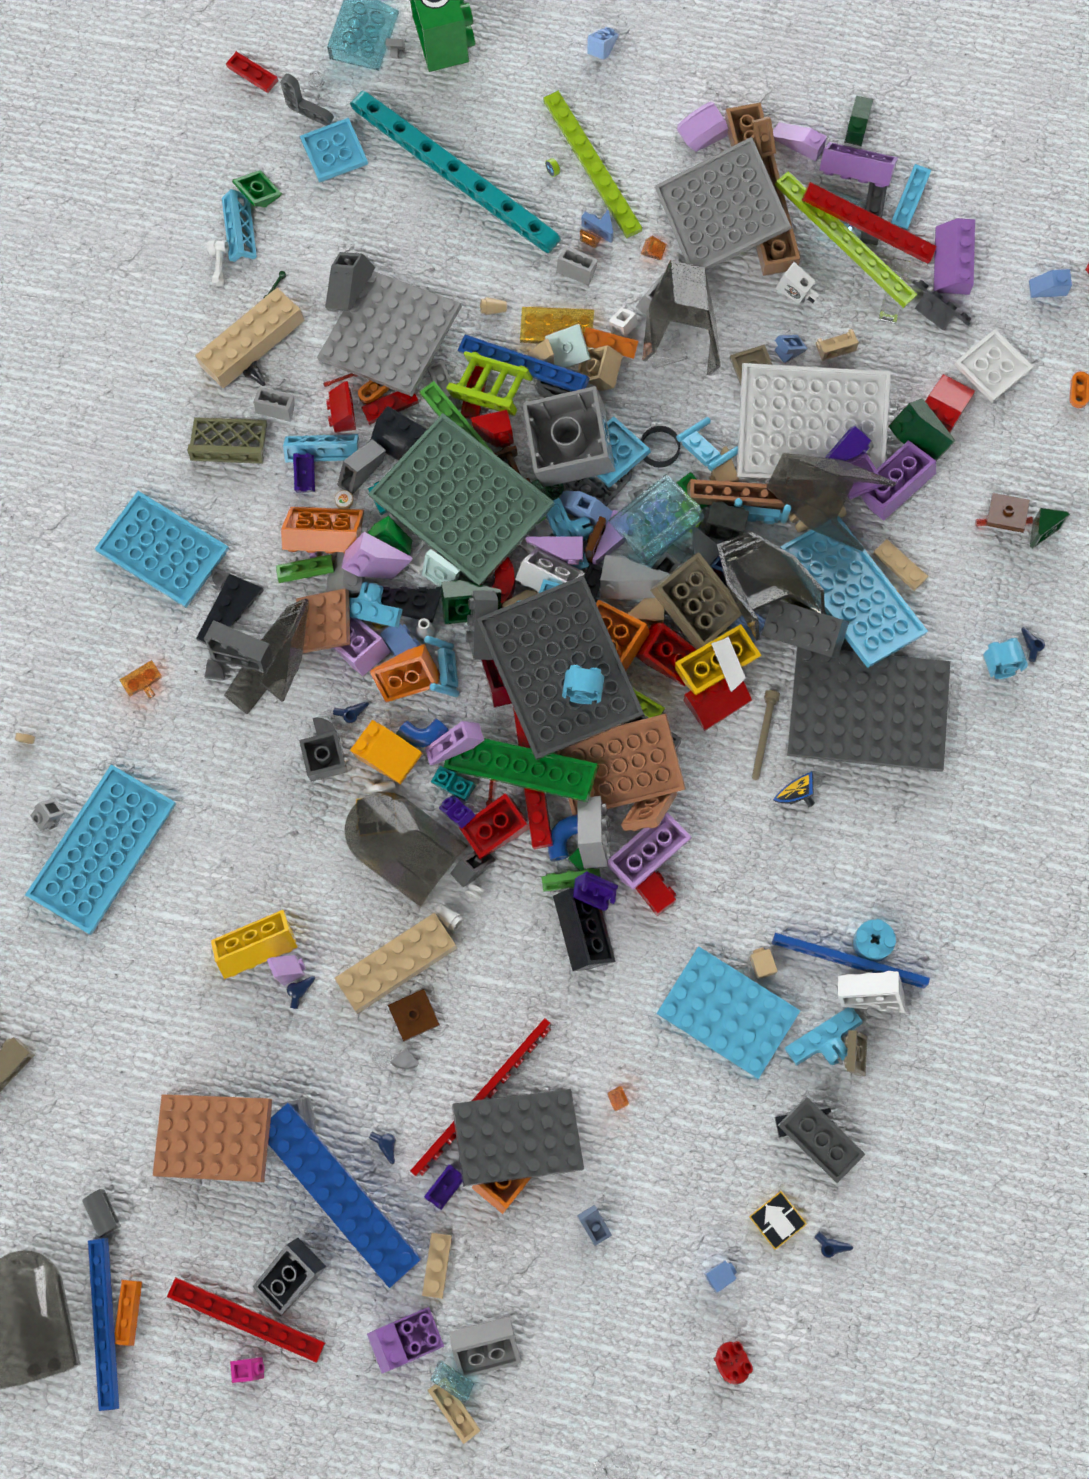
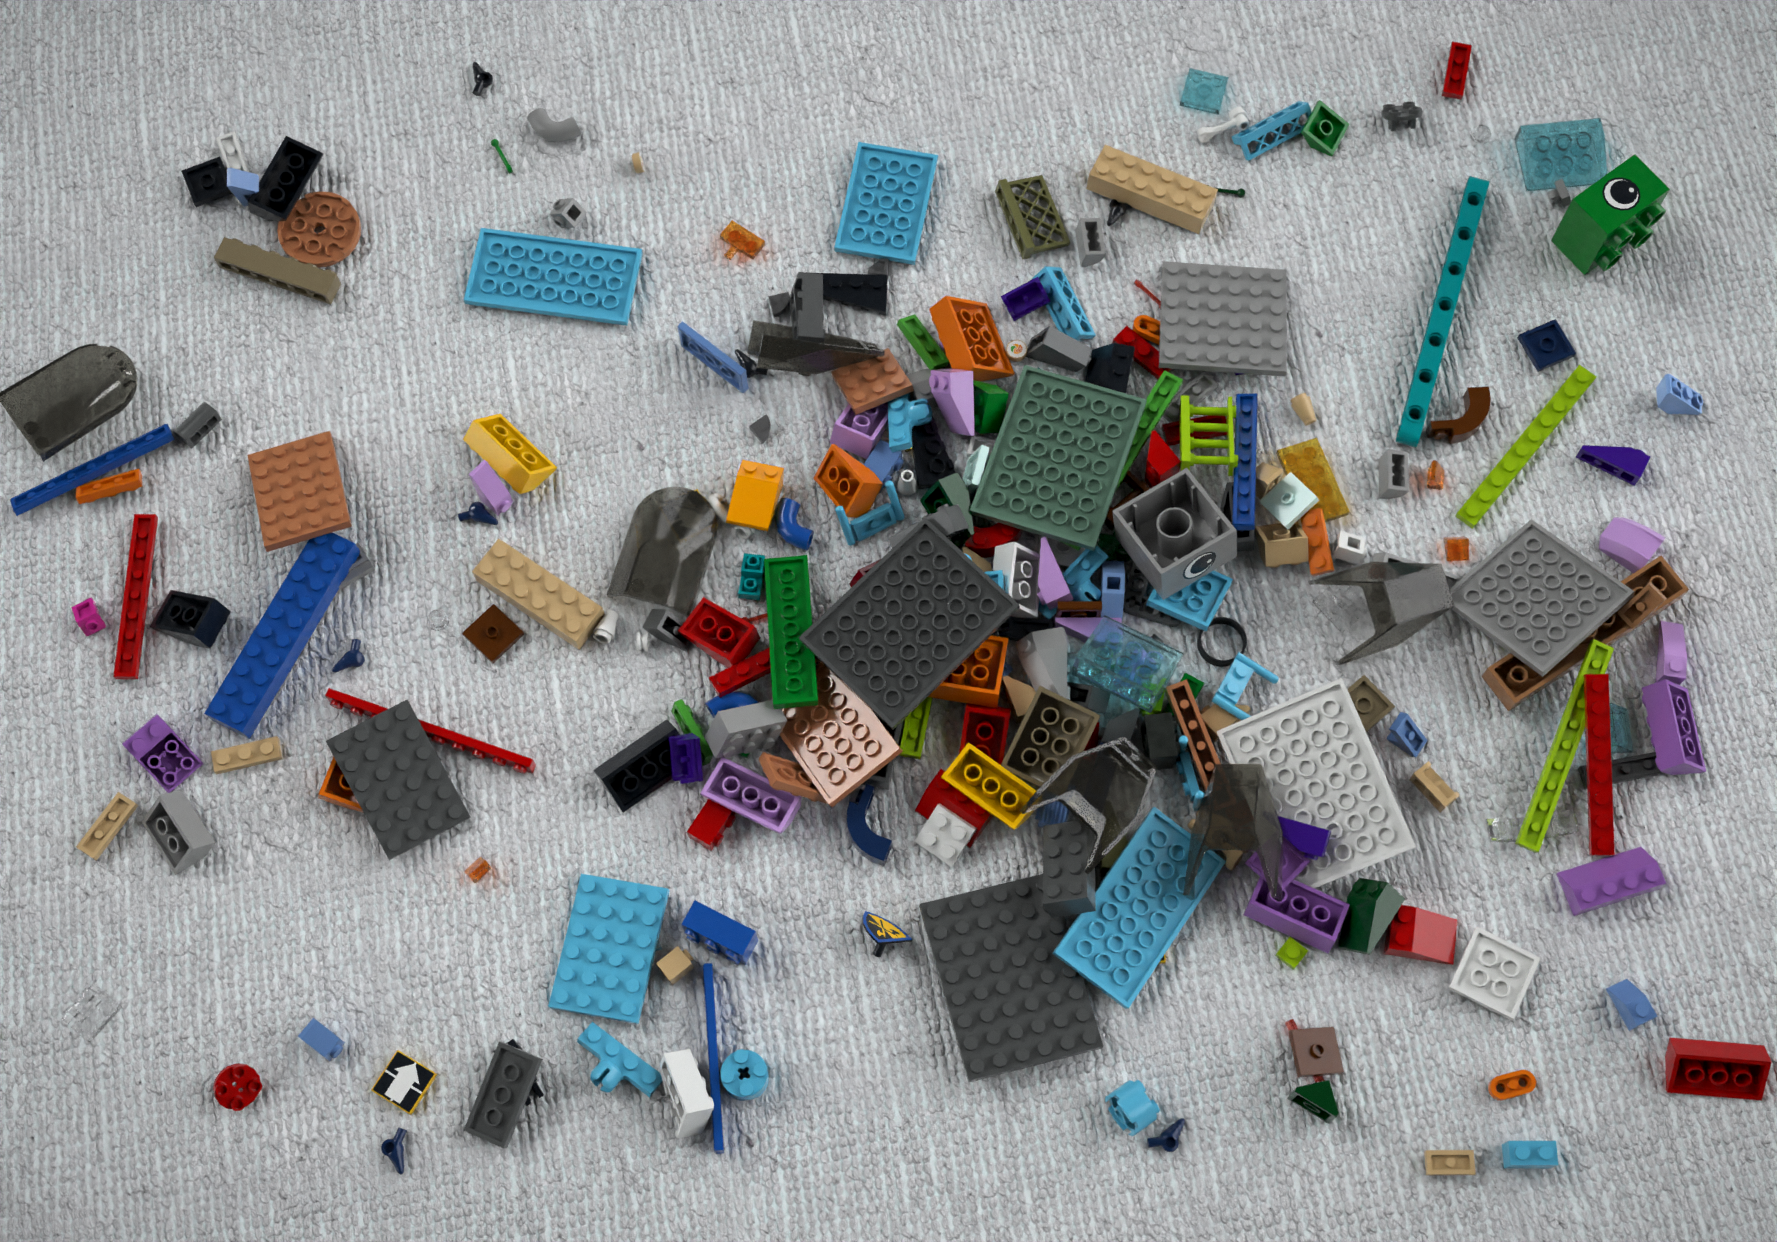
camera: 65 degrees right, 5 degrees down
(177, 264) = (1204, 91): none -> clear light blue plate
(244, 740) = (713, 357): none -> medium blue tile
(261, 716) = (749, 364): none -> black animal
(272, 126) = (1407, 111): none -> dark grey plate
(295, 102) = (1442, 129): dark grey beam -> none
(323, 756) = (727, 438): dark grey brick -> none
(333, 150) = (1407, 183): medium azure plate -> none
(342, 409) = (1114, 307): red slope -> none
(347, 280) = (1260, 253): dark grey slope -> none
(350, 713) = (788, 449): dark blue animal -> none
(404, 1060) = (442, 642): flat silver tile -> none
(444, 1187) = (322, 728): dark purple hinge -> none
(452, 1381) = (133, 812): clear light blue plate -> none
(454, 742) = (792, 557): lavender slope -> none
(456, 811) = (721, 590): dark purple slope -> none
(517, 113) = (1546, 345): none -> dark blue plate
(551, 185) = (1457, 430): none -> reddish brown arch
(552, 167) = (1499, 406): lime tile -> none
(583, 684) = (892, 648): medium azure brick -> none
(594, 1225) = (336, 892): sand blue slope -> none
(599, 227) = (1454, 484): medium blue slope -> none
(637, 103) = (1620, 462): none -> dark purple slope
(709, 778) = (864, 840): none -> dark blue arch
(729, 662) = (990, 797): white sticker -> none
(737, 713) = (945, 835): none -> white plate
(753, 917) = (719, 933): none -> blue brick
(771, 698) = (978, 867): dark tan piece -> none
(797, 284) = (1485, 706): white torso -> none
(856, 1054) = (609, 1098): dark tan plate -> none
(858, 120) = (1731, 710): dark green slope -> none
(900, 565) = (1199, 953): tan plate -> none
(911, 196) = (1661, 804): medium azure plate -> none
(925, 499) = (1291, 953): none -> lime plate
(936, 309) = (1535, 883): black bracket -> none

